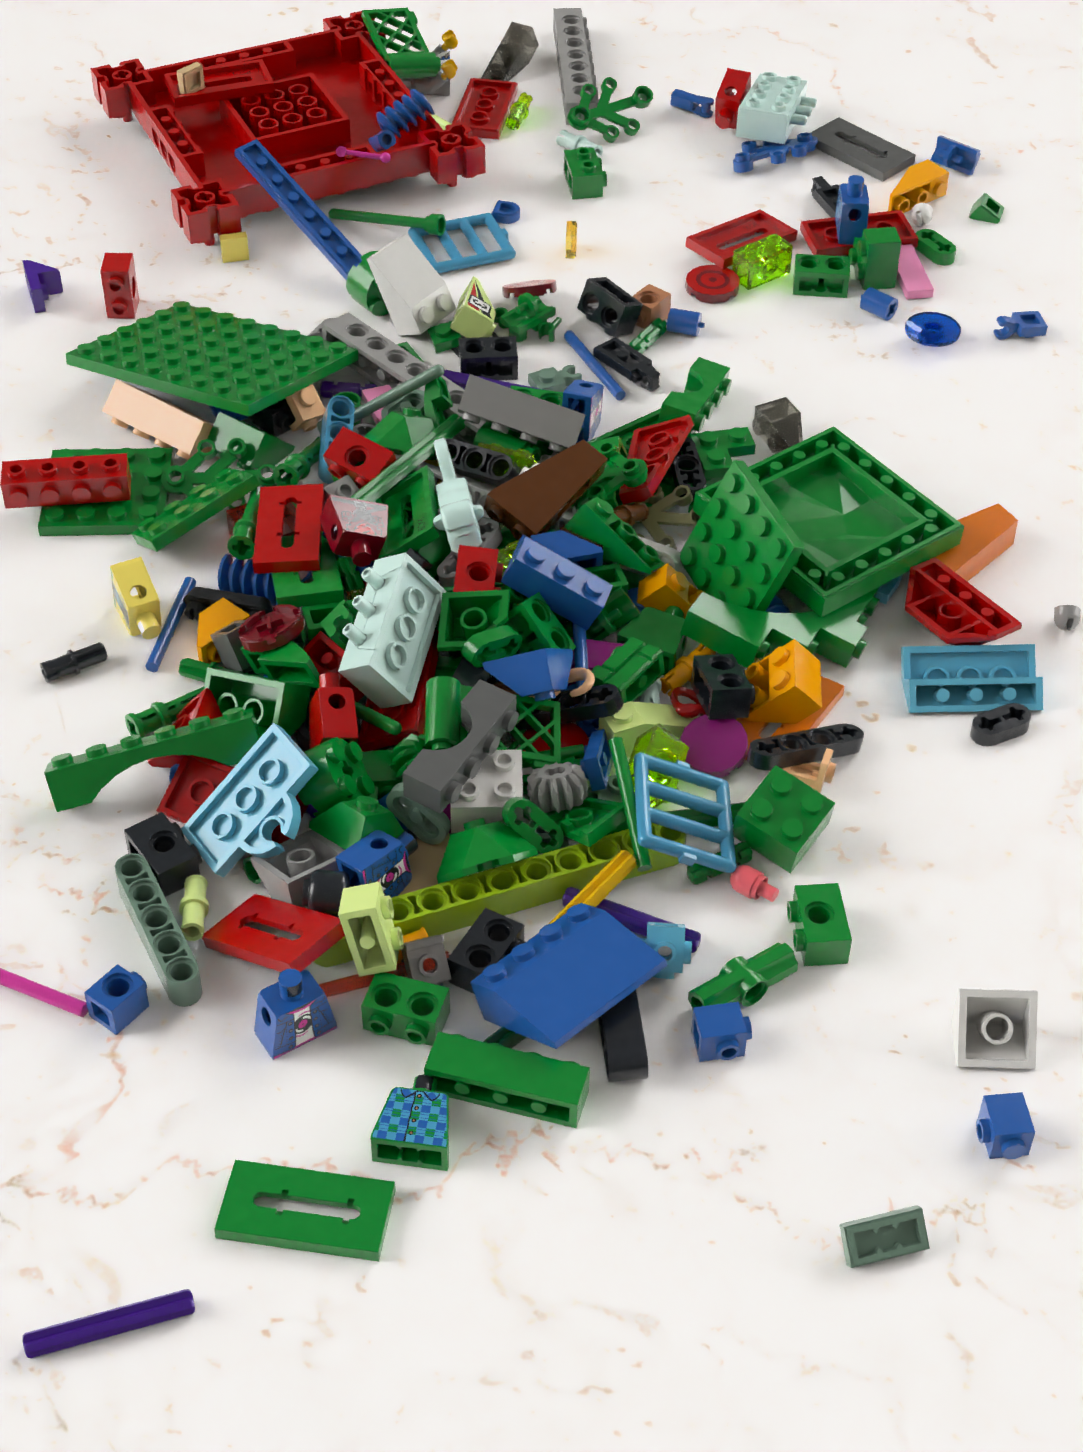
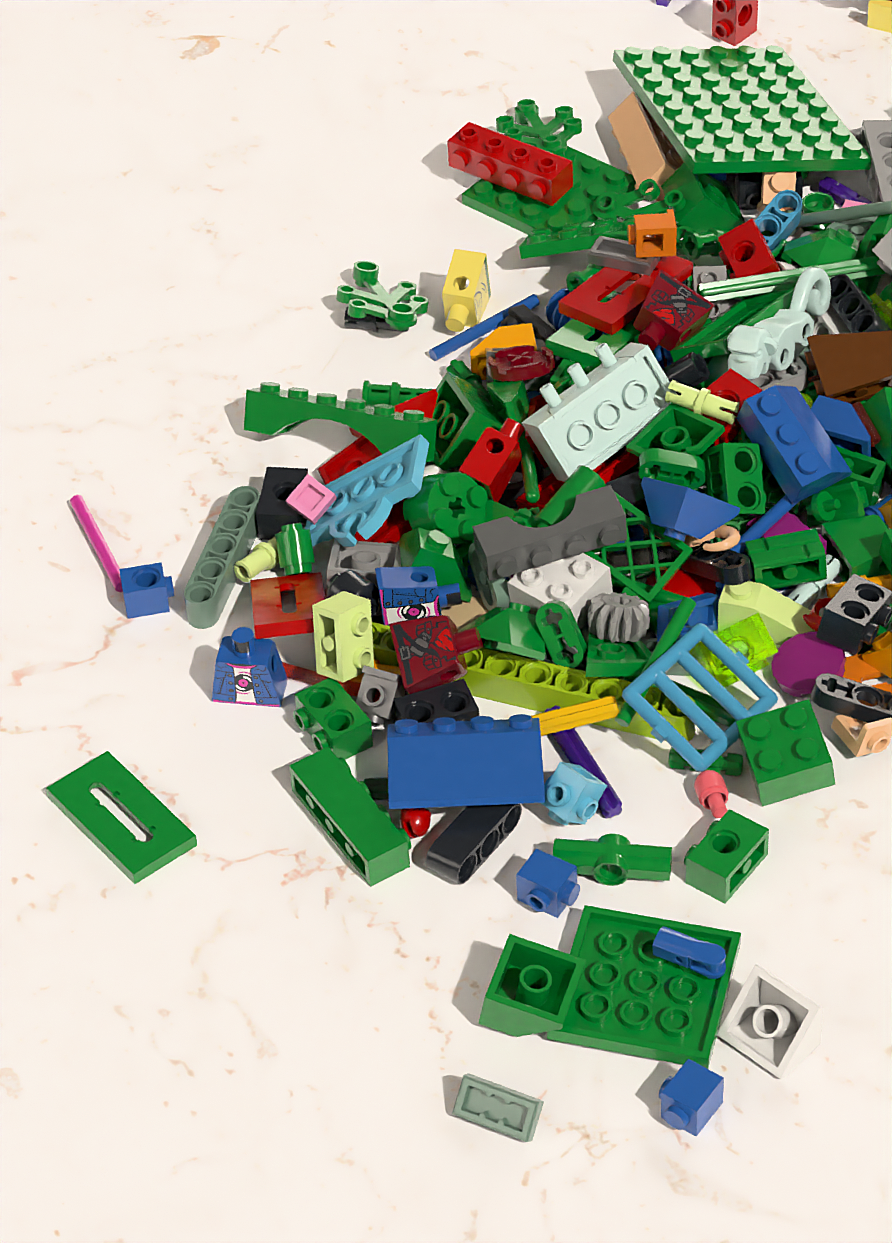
camera: 45 degrees right, 0 degrees up
(23, 439) = (528, 113): none -> green plant
(100, 644) = (399, 315): none -> green plant
(202, 833) = (311, 499): none -> bright pink plate
(221, 886) = (295, 549): none -> green brick
(266, 502) = (620, 255): none -> flat silver tile
(287, 472) = (653, 234): none -> orange brick
(413, 1127) = (248, 806): torso -> none
(449, 898) = (432, 651): none -> dark red torso
(471, 580) = (702, 402): none -> yellowish green pin
(567, 1050) = (415, 821): none -> red hinge
(810, 1123) = (530, 988): none -> green slope
(875, 1064) = (641, 1001): none -> green plate
(889, 1013) = (689, 952): none -> blue bar

